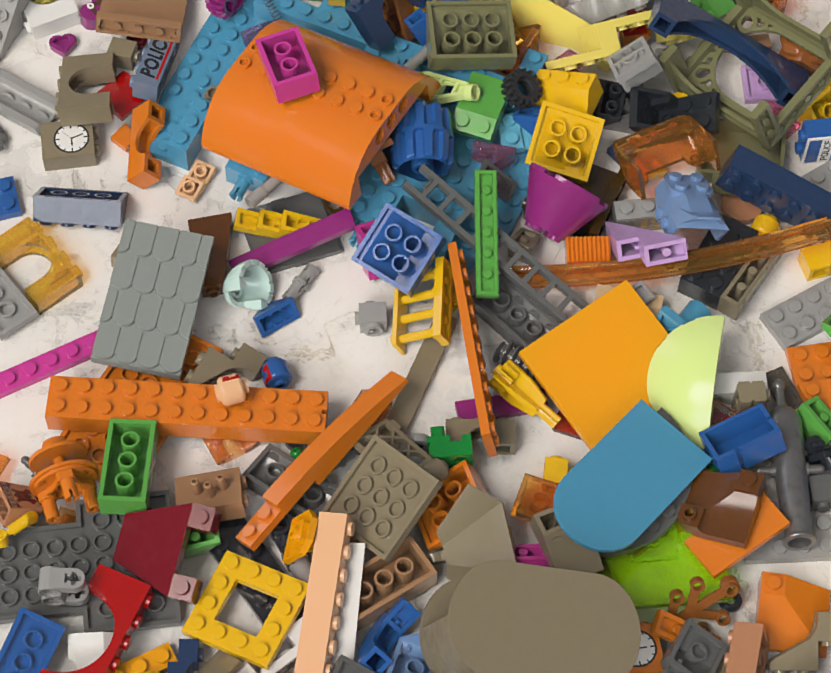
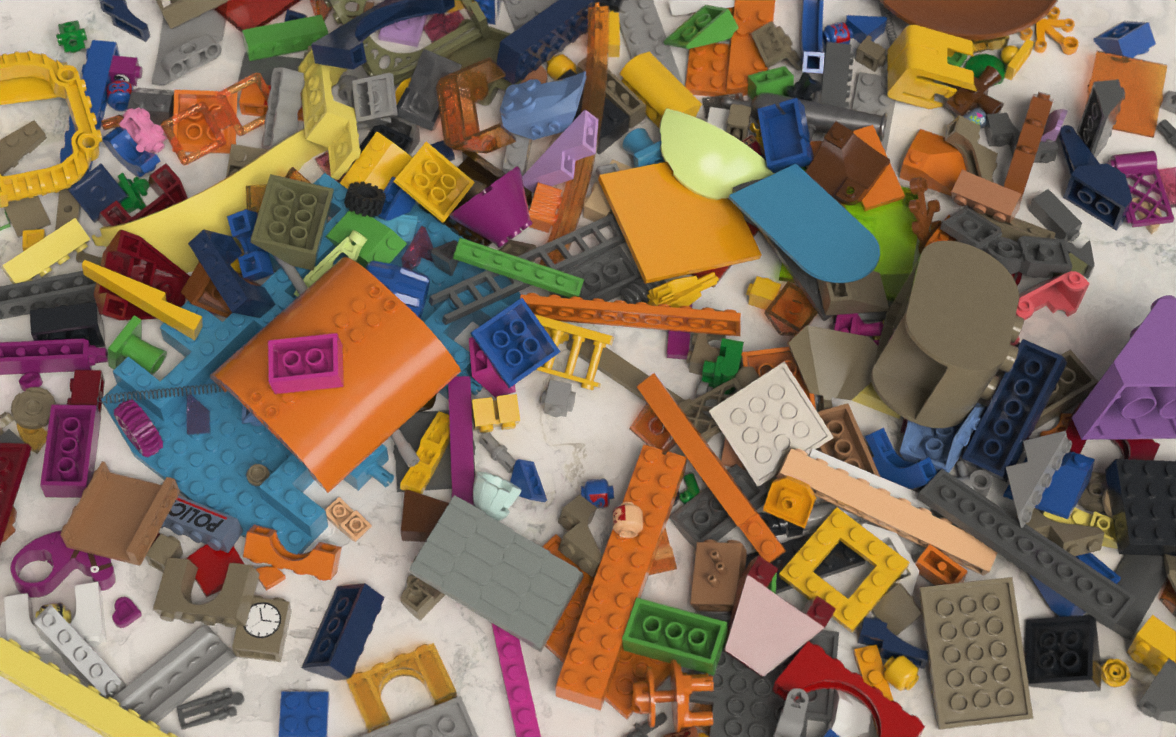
camera: 75 degrees left, 0 degrees up
(332, 263) = (495, 413): none -> yellow piece
(763, 318) = (657, 88): none -> yellow brick

